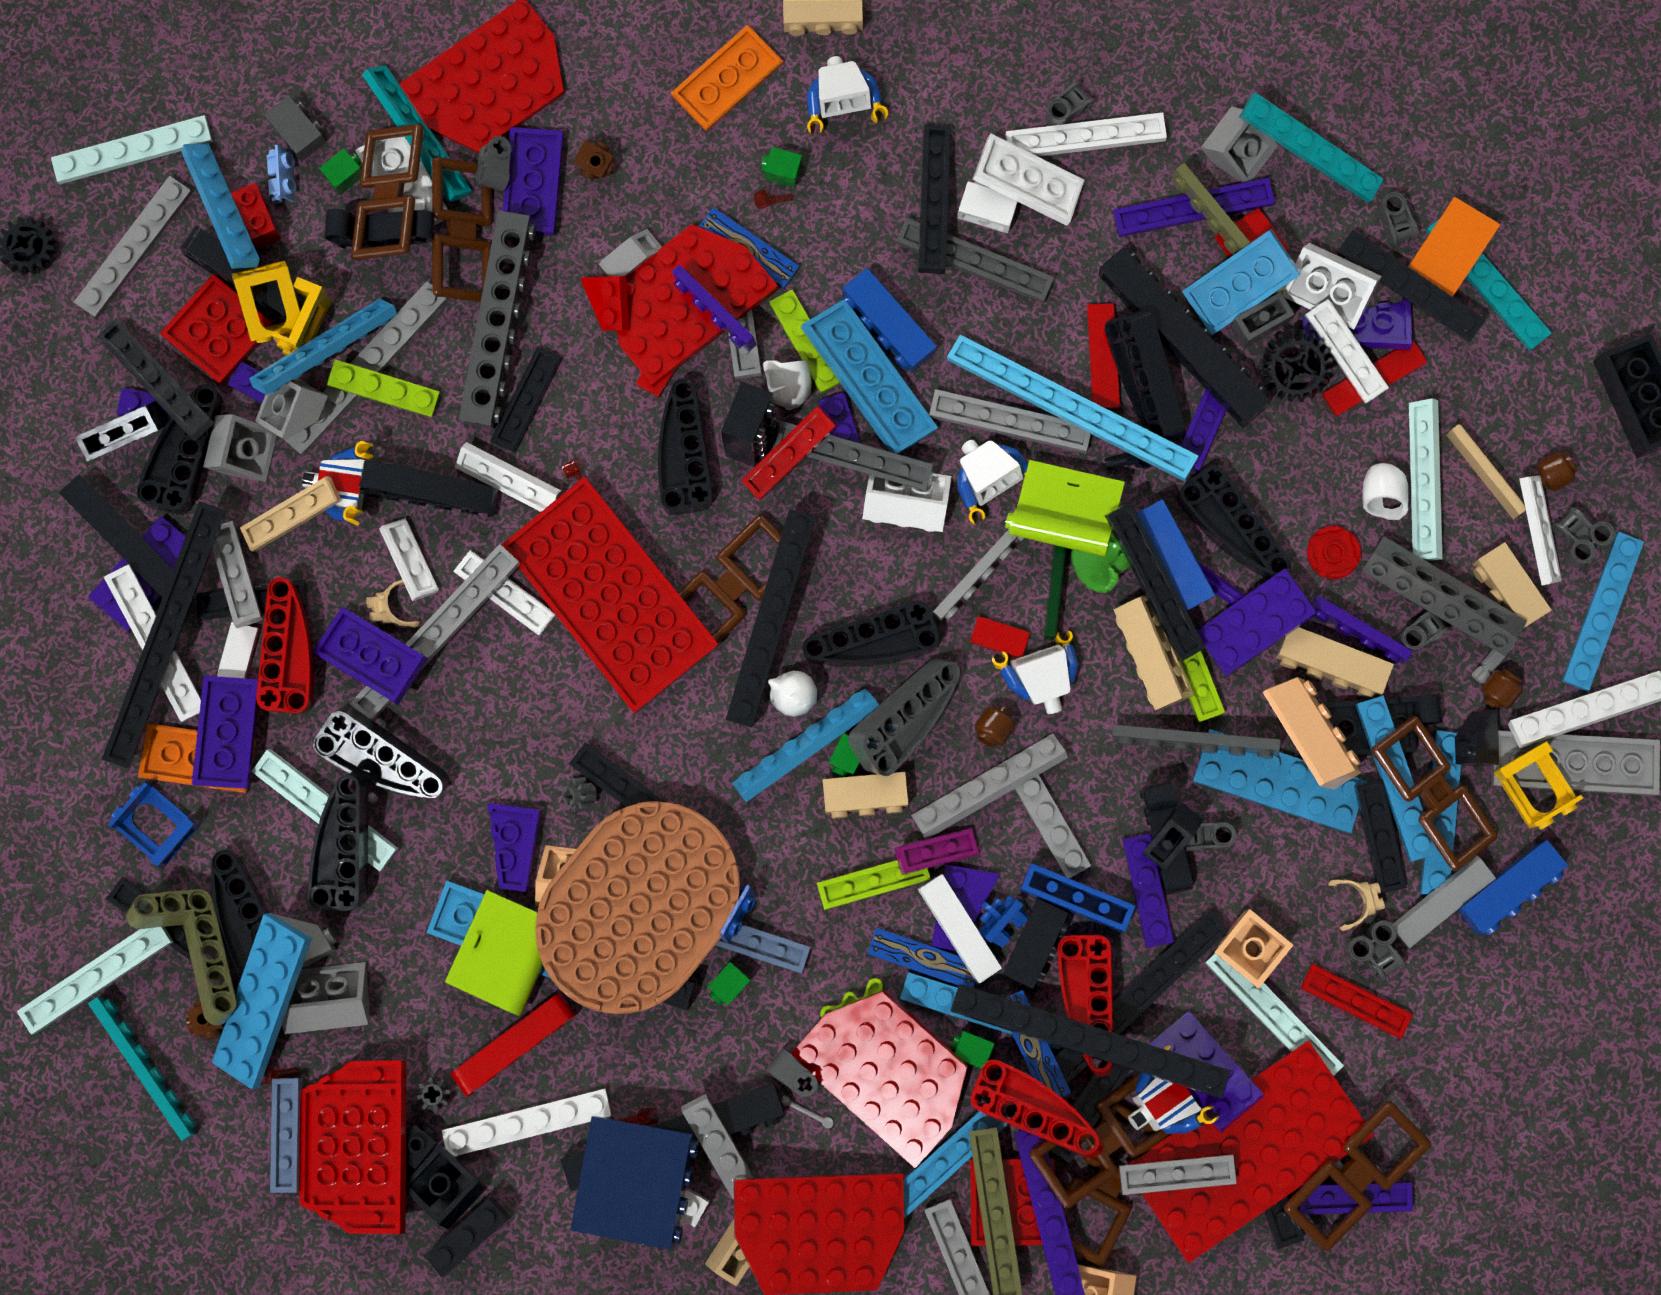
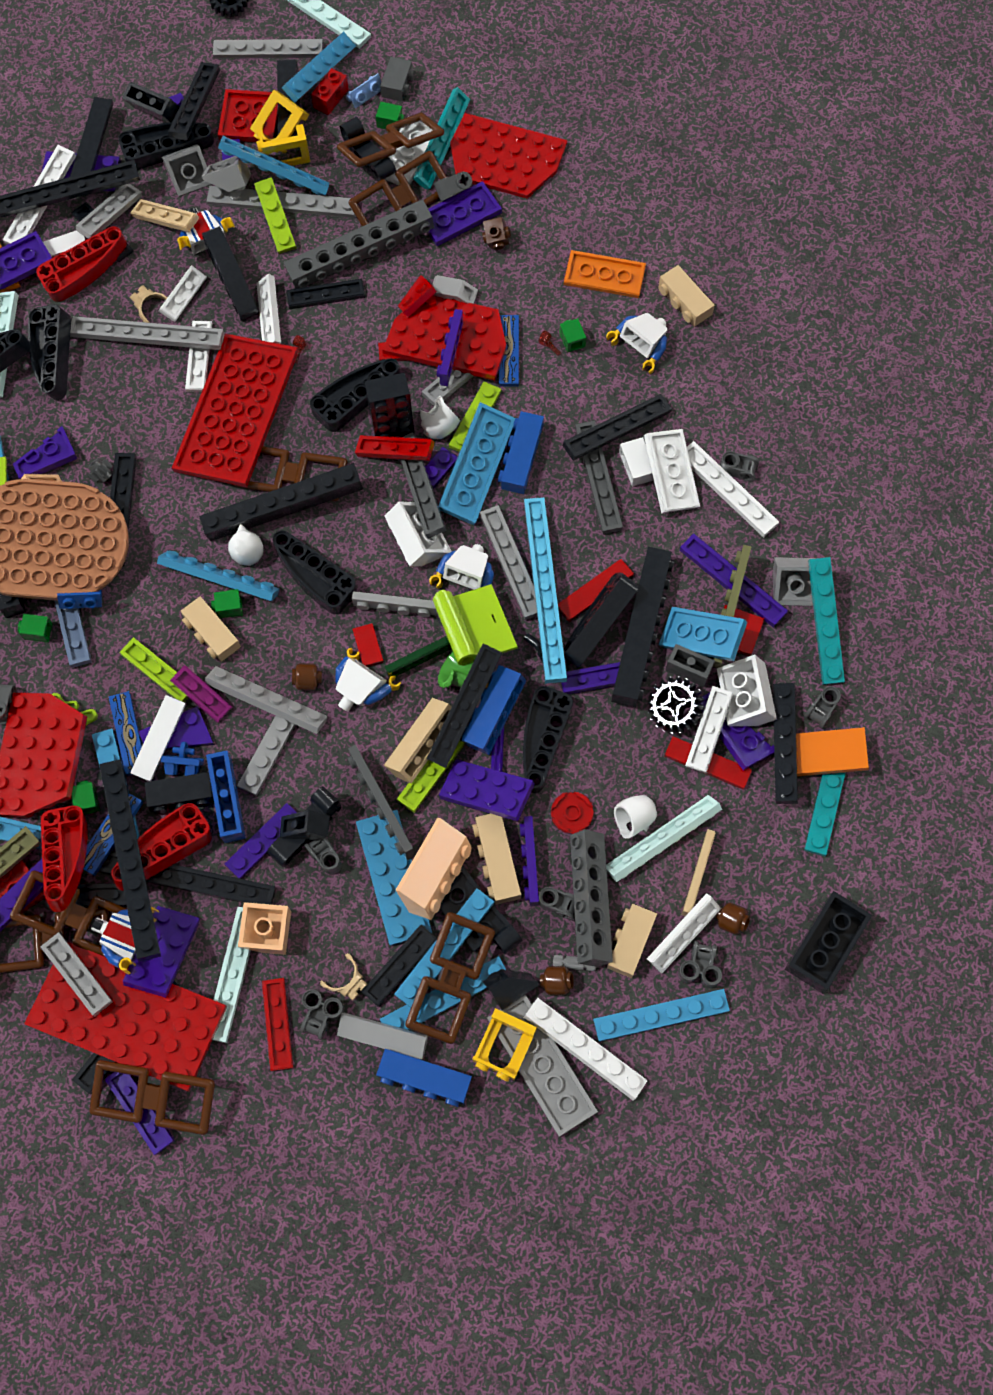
camera: 55 degrees right, 10 degrees down
(370, 655) = (107, 306): dark purple plate -> none
(904, 726) = (267, 624): dark grey beam -> none

